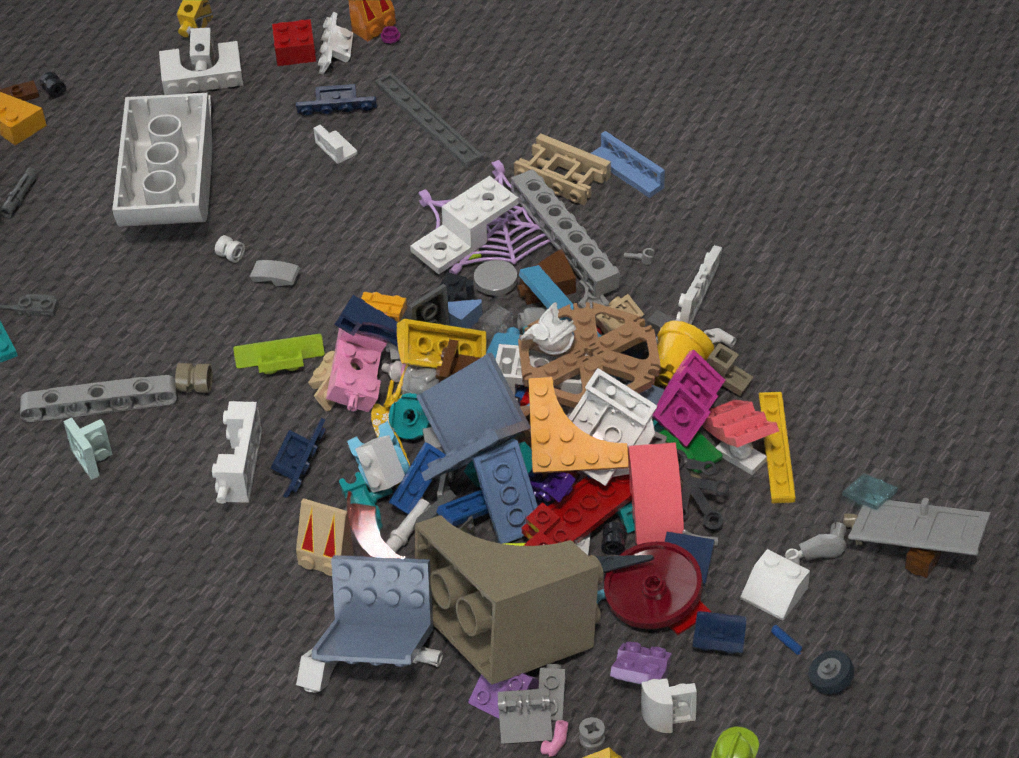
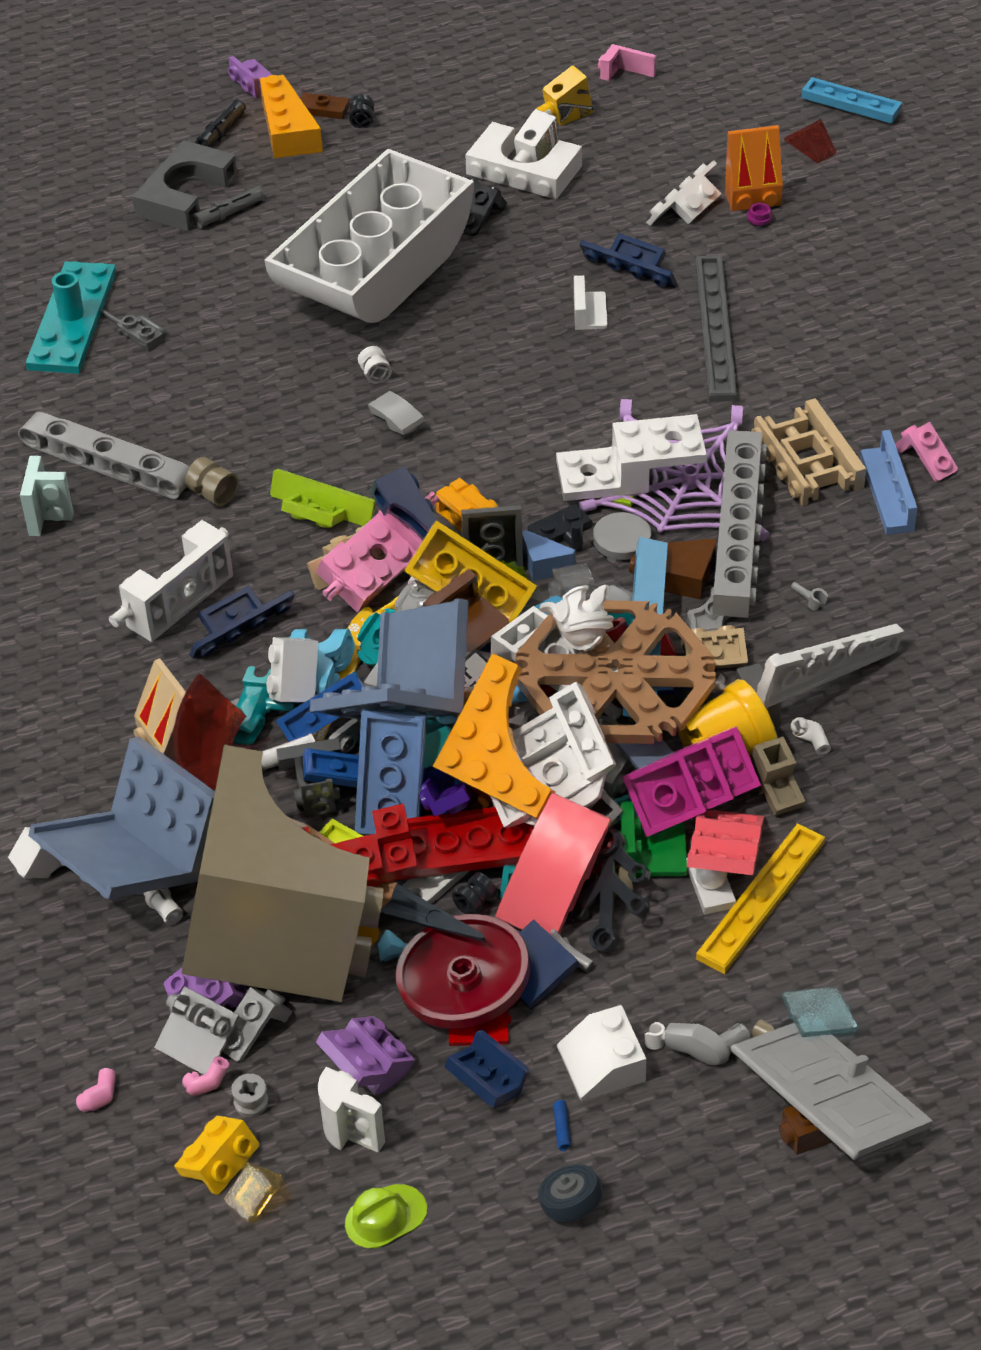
camera: 35 degrees right, 0 degrees up
(293, 42) = (644, 175): red brick -> none
(633, 131) = (930, 450): none -> bright pink bracket

